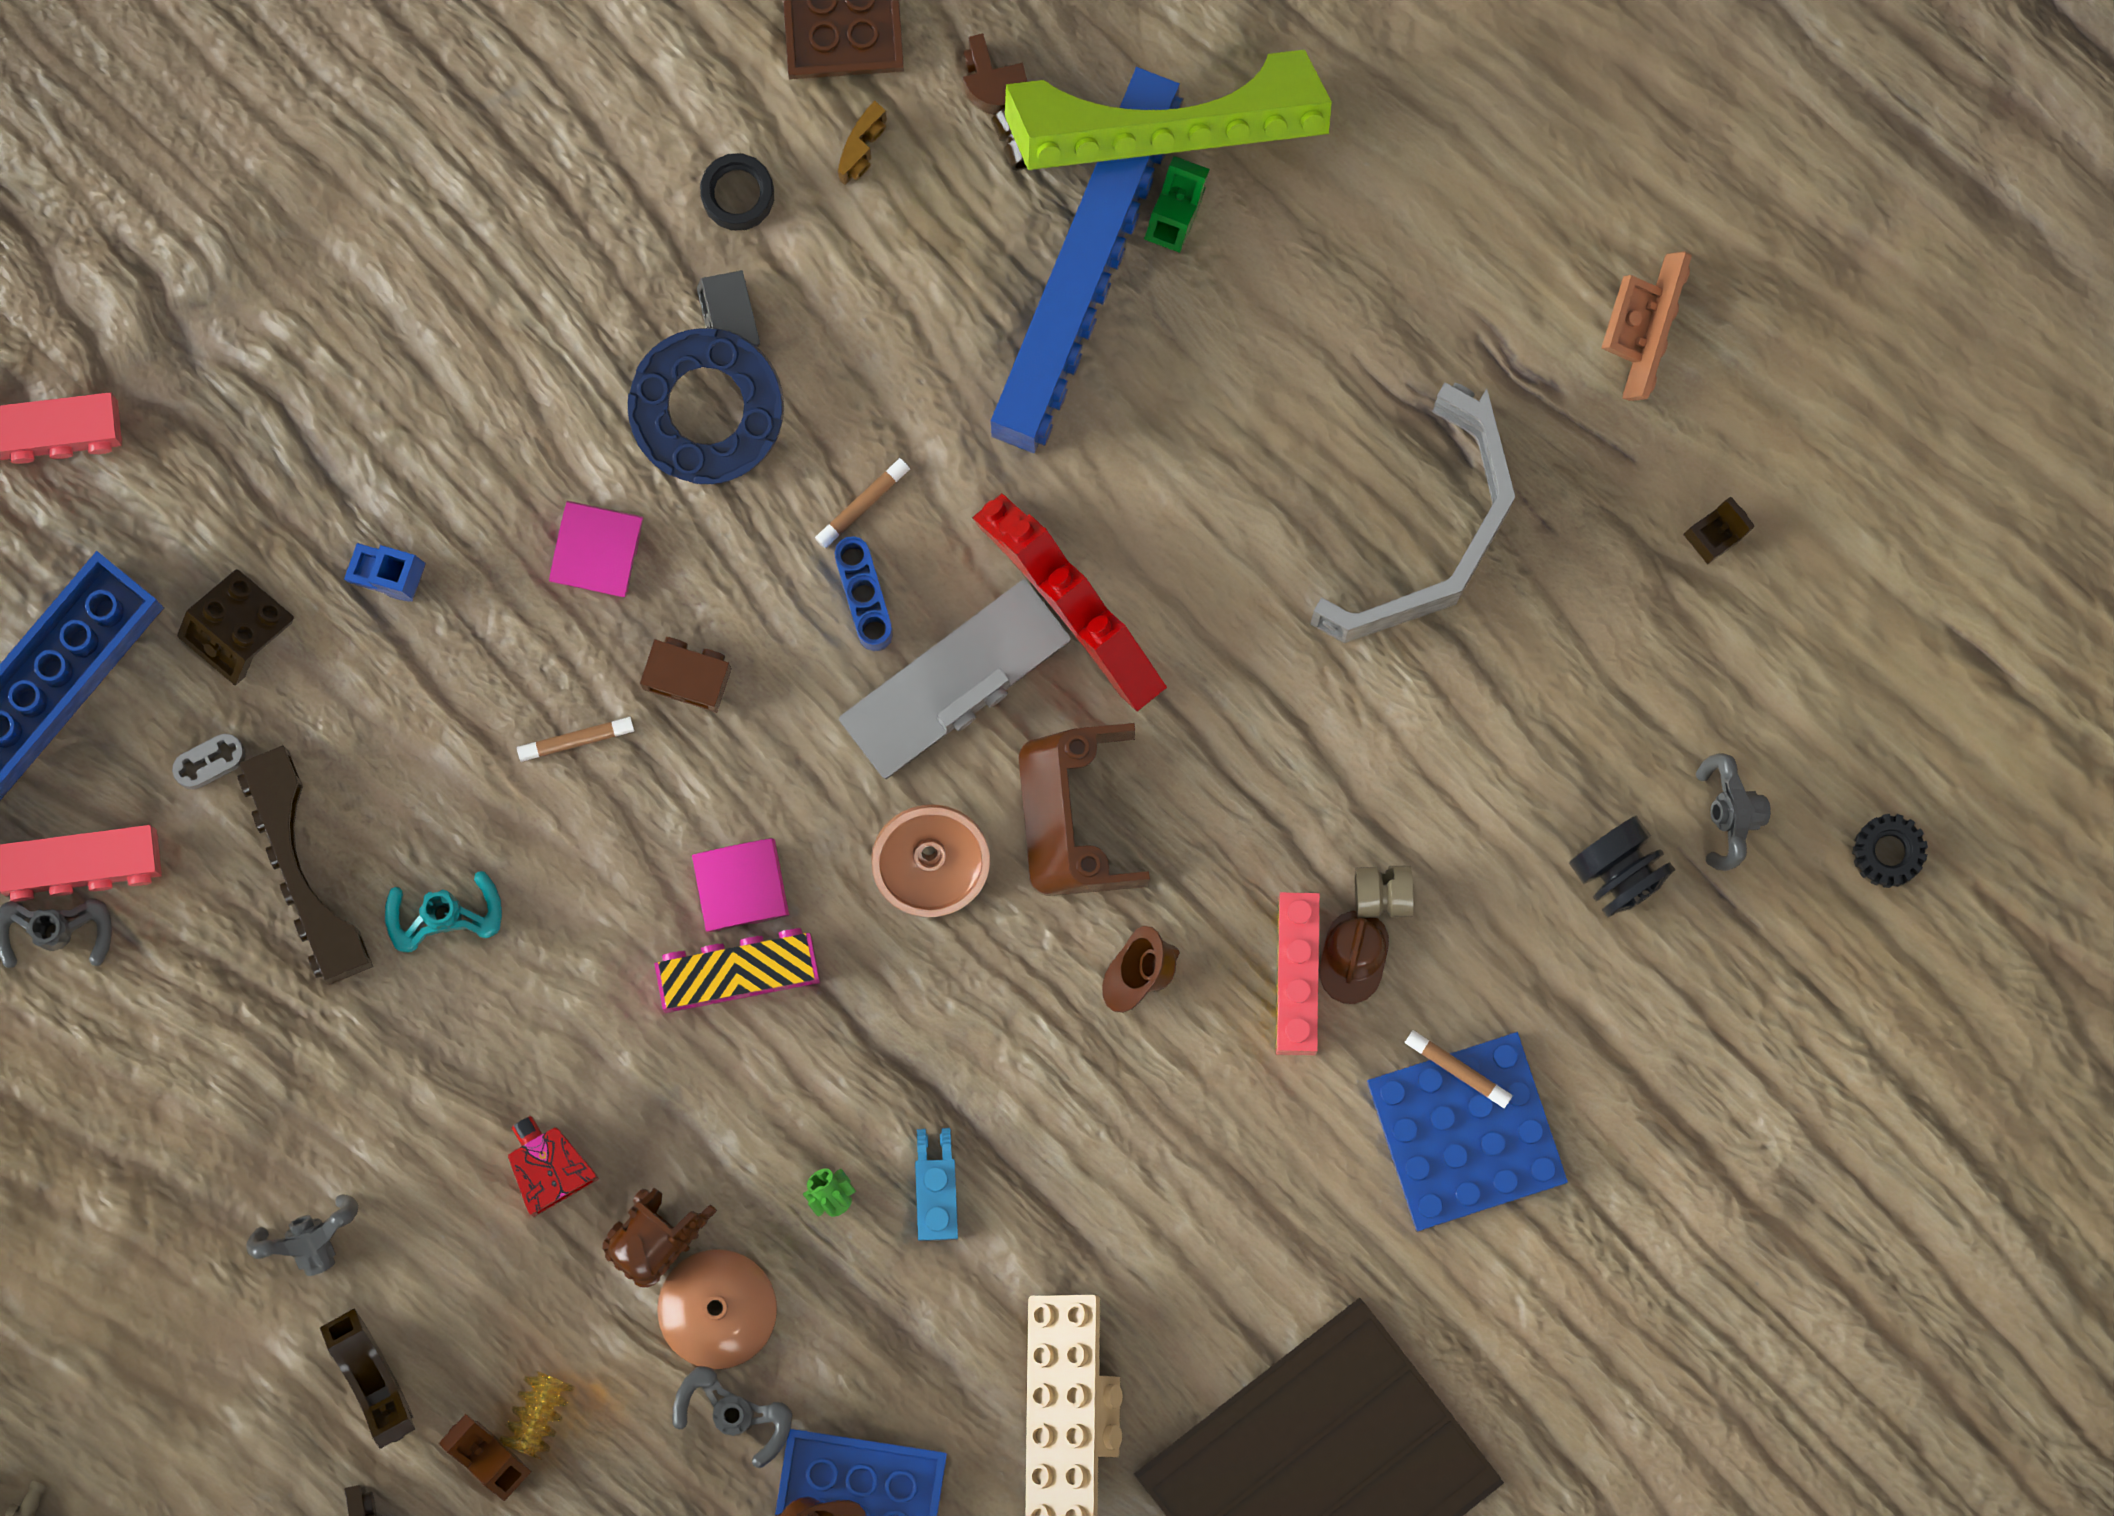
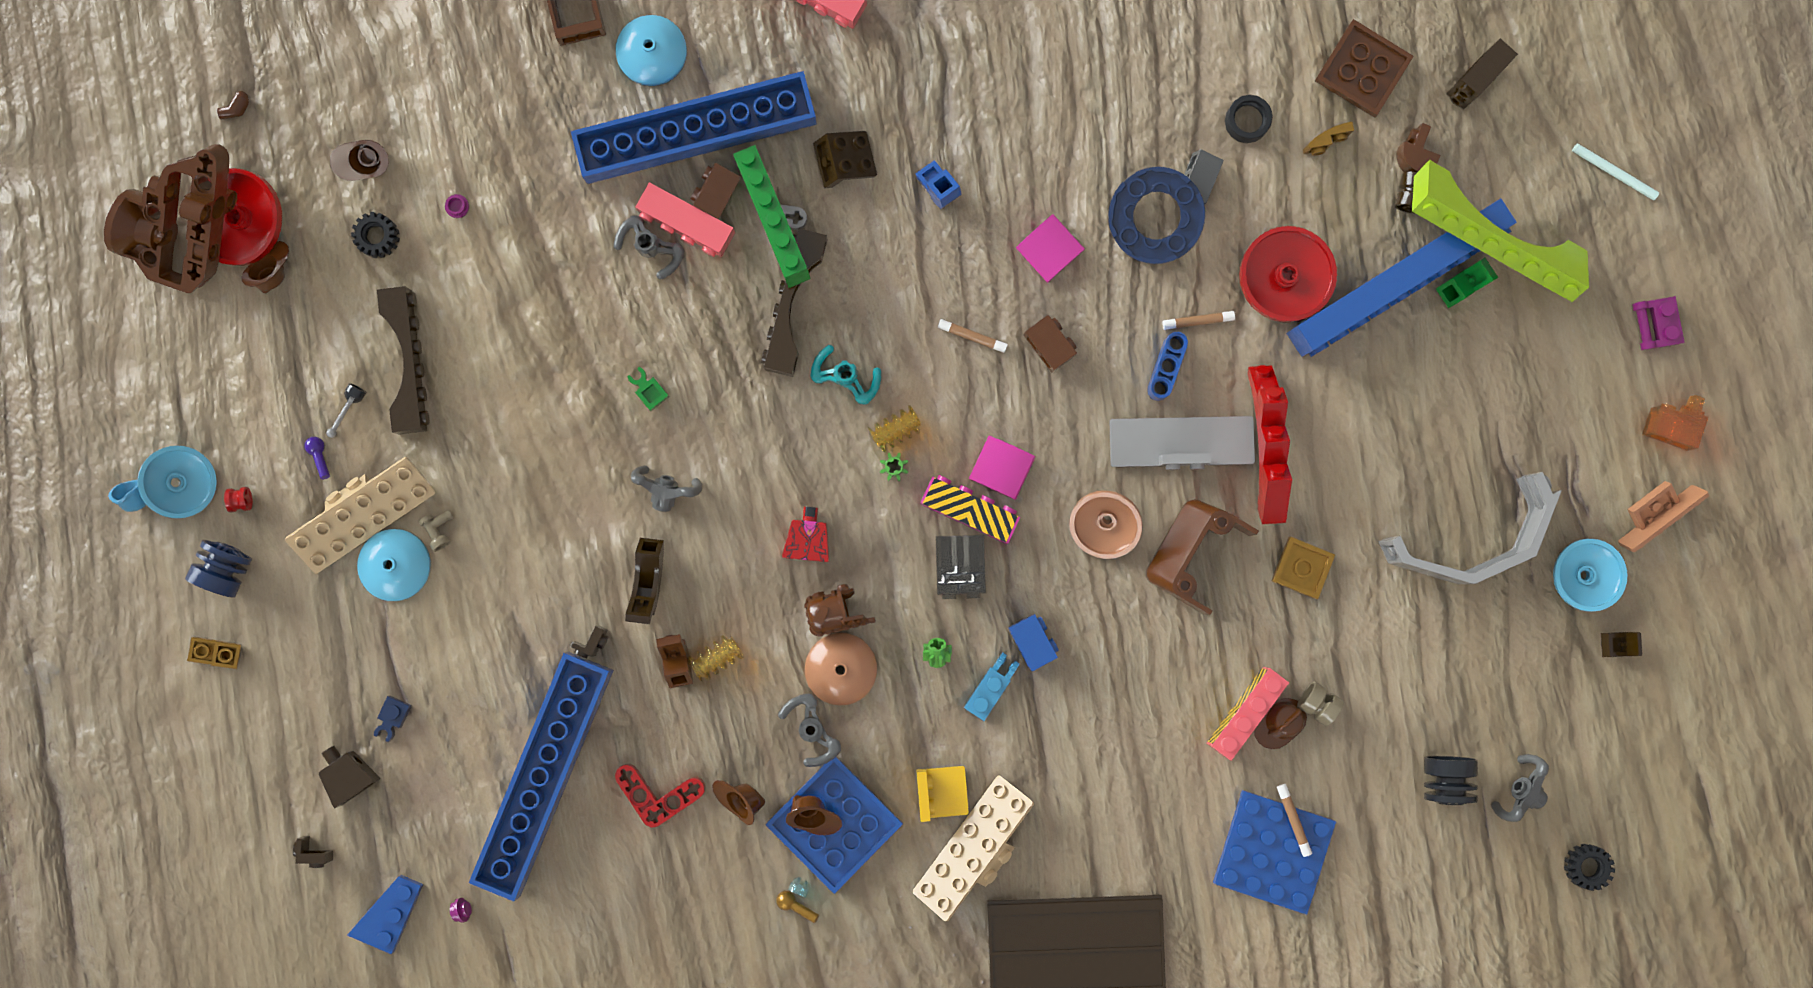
camera: 30 degrees right, 5 degrees up
(90, 792) = (715, 190): none -> reddish brown brick
(192, 772) = (772, 216): none -> green arch
(193, 1125) = (650, 391): none -> green plate
(560, 935) = (896, 428): none -> clear yellow piece
(584, 982) = (896, 473): none -> bright green gear
(777, 1055) = (960, 566): none -> clear smoke brick
(934, 359) = (1288, 274): none -> red dish
(947, 1085) = (1033, 642): none -> blue brick
(969, 1373) = (942, 792): none -> yellow bracket
(1139, 968) = (1169, 653): reddish brown piece -> none
(1234, 730) = (1303, 568): none -> pearl gold plate
(1477, 68) = (1665, 323): none -> magenta plate
(1590, 195) = (1678, 428): none -> clear orange hinge
(1615, 443) = (1604, 575): none -> medium azure dish

